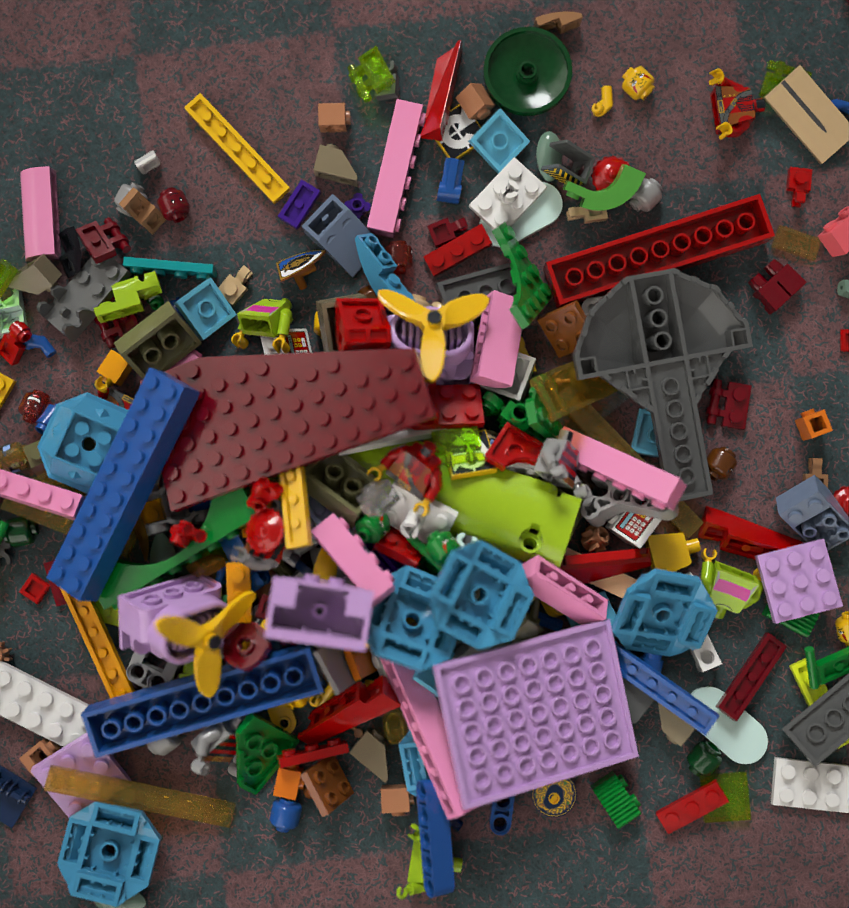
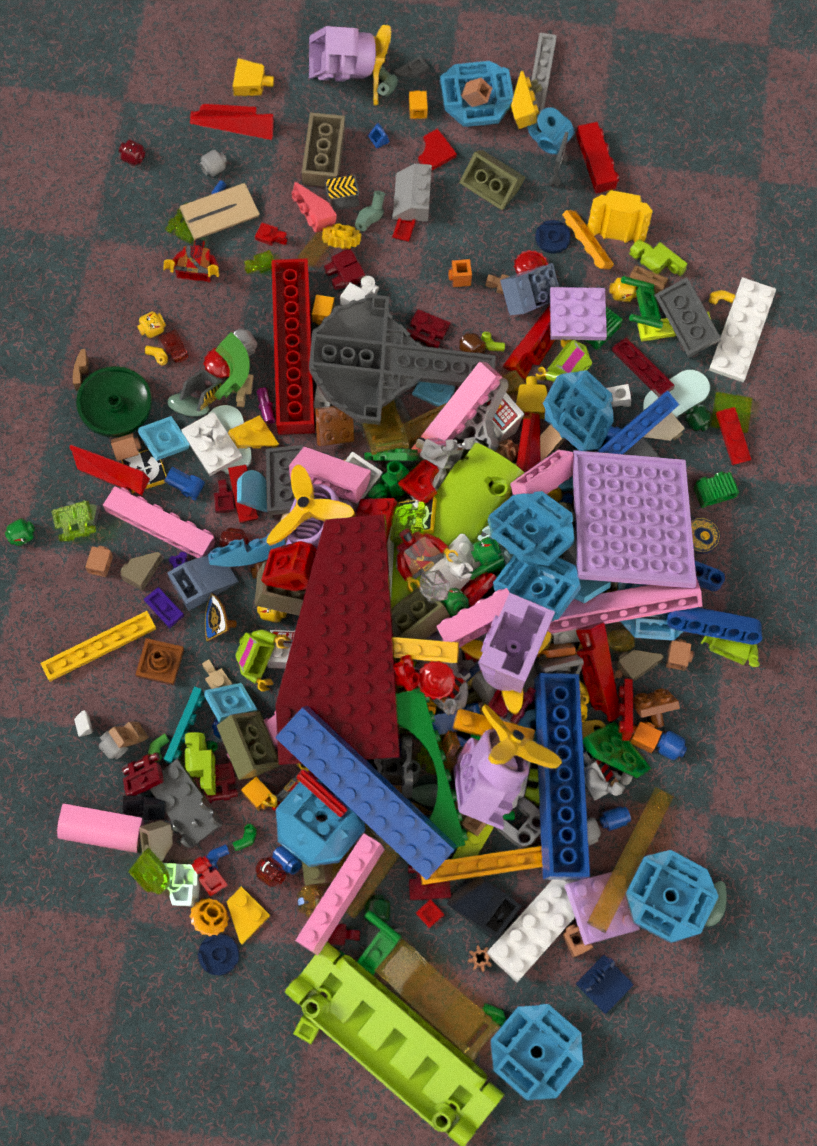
camera: 80 degrees left, 15 degrees down
(50, 648) = (484, 906): none -> black slope
(67, 372) = (247, 839): none -> green arm
(108, 436) = (322, 793): none -> red axle
(143, 244) = (156, 745): none -> bright green arm
(173, 205) = (130, 709): dark red head -> none
(182, 767) = (615, 818): none -> blue brick
(184, 532) = (419, 752): red plate -> none
(236, 219) = (159, 661): none -> dark orange plate
(249, 658) = (528, 711): dark red plate -> none
(343, 21) = (20, 532): none -> green head
(461, 258) = (252, 490): none -> medium azure tile
(531, 291) = (298, 440): green plate -> none
(533, 237) = (252, 434): none -> yellow wing
(574, 243) = (265, 406): none -> magenta axle
(621, 115) = (173, 343): none -> clear red plate
(717, 273) = (322, 308): none -> light orange brick
(730, 485) = (490, 344): none -> lime arm
(746, 304) = (355, 293): none -> white brick
(758, 184) = (261, 262): none -> clear neon green plate
(820, 268) = (341, 236): none -> yellow gear

